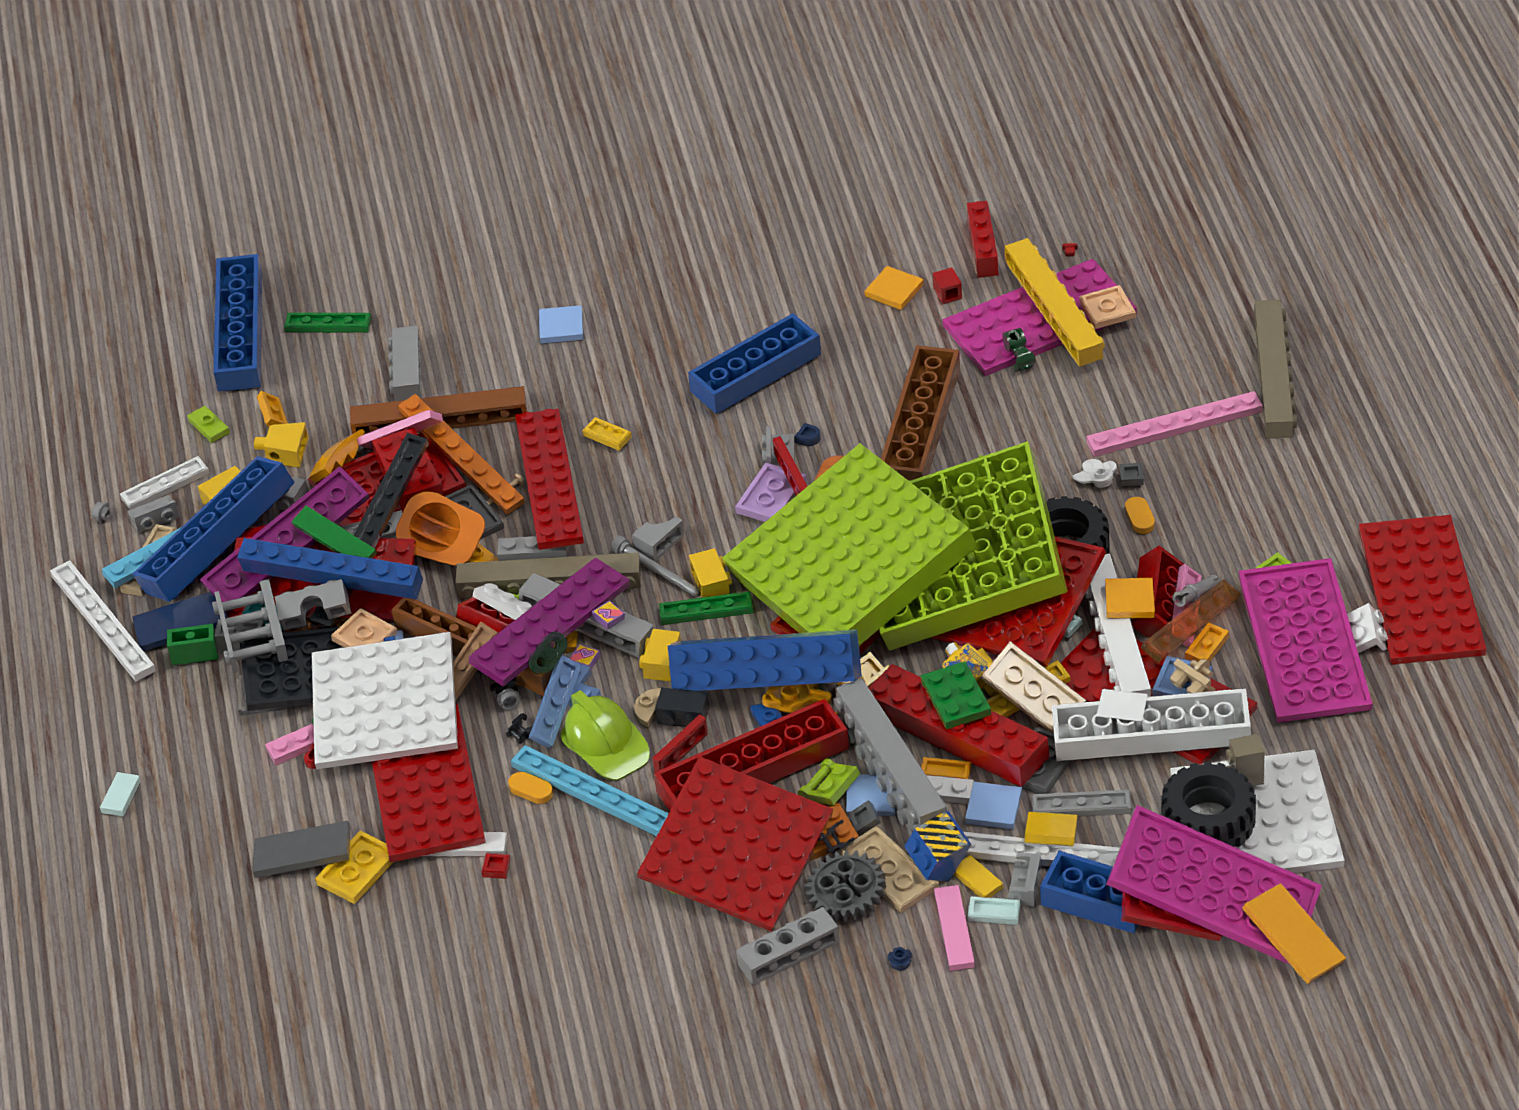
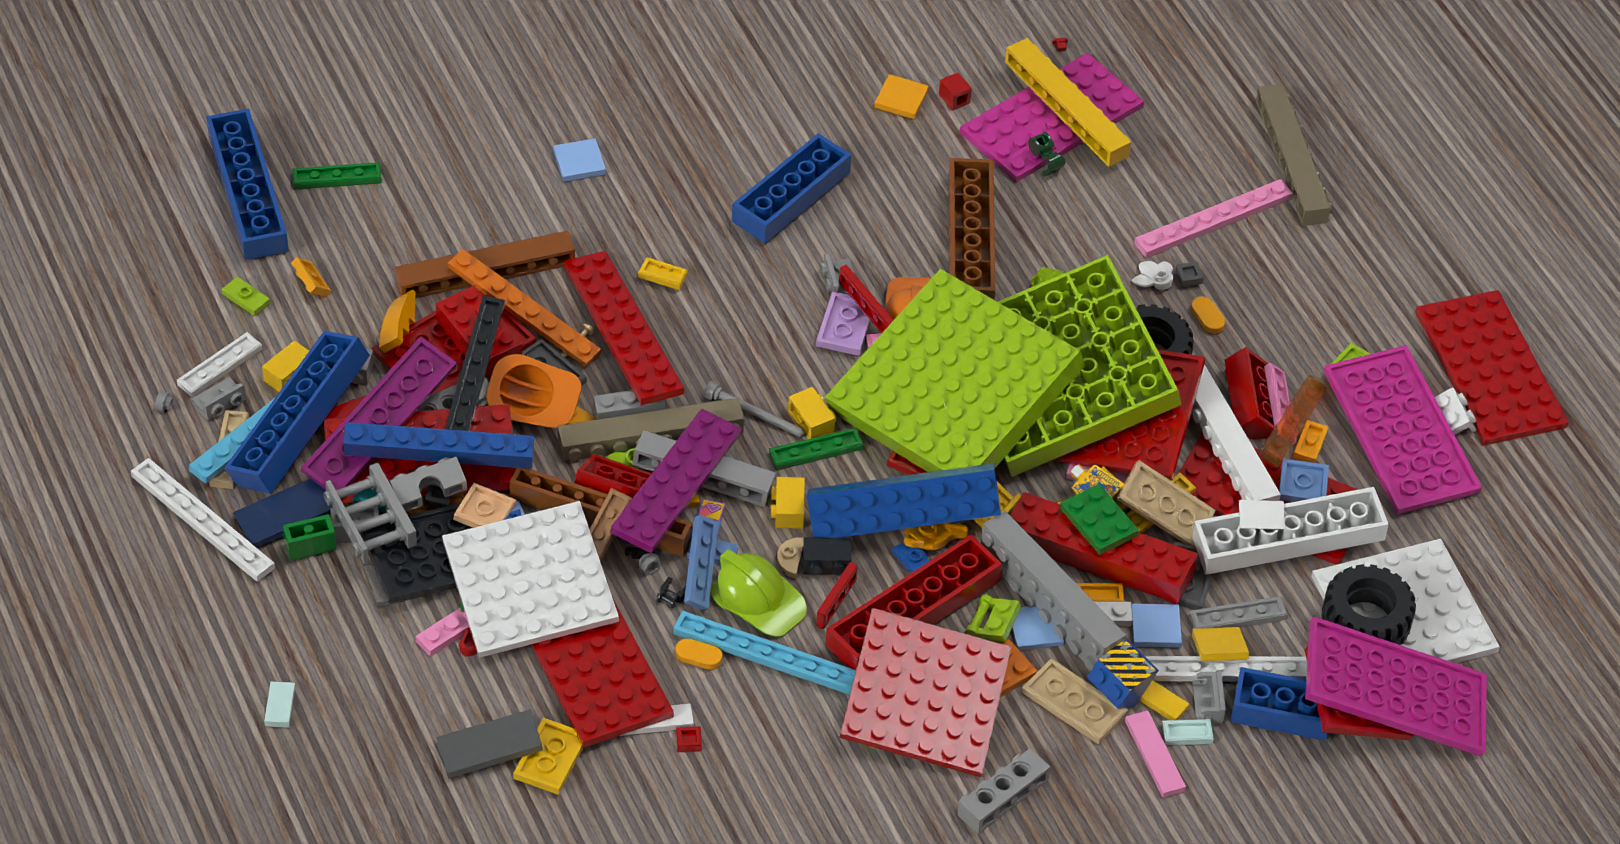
camera: 20 degrees left, 5 degrees up
(284, 443) = (334, 311): yellow torso -> none
(331, 534) = (430, 409): green tile -> none
(406, 363) = (435, 215): light grey brick -> none
(419, 422) = (444, 292): bright pink tile -> none
(501, 600) = (620, 463): white plate -> none
(547, 654) = (687, 516): clear green plate -> none
(608, 614) = (731, 467): tile -> none
(657, 539) = (747, 380): light grey arch -> none
(808, 435) = (863, 258): dark blue tile -> none
(839, 845) = (1013, 669): black piece -> none
(852, 878) = (1042, 723): dark grey gear -> none
(864, 817) = (1038, 651): dark grey plate -> none
(900, 958) = (1113, 795): dark blue plate -> none
(982, 239) = (975, 40): red brick -> none
(1107, 306) = (1119, 102): light nougat tile -> none
(1129, 598) = (1235, 404): light orange tile -> none
(1192, 592) = (1288, 390): light grey pin -> none
(1196, 676) = (1320, 476): tan hips -> none
(1247, 757) = (1393, 553): dark tan brick -> none
(1294, 933) = (1478, 725): light orange tile -> none

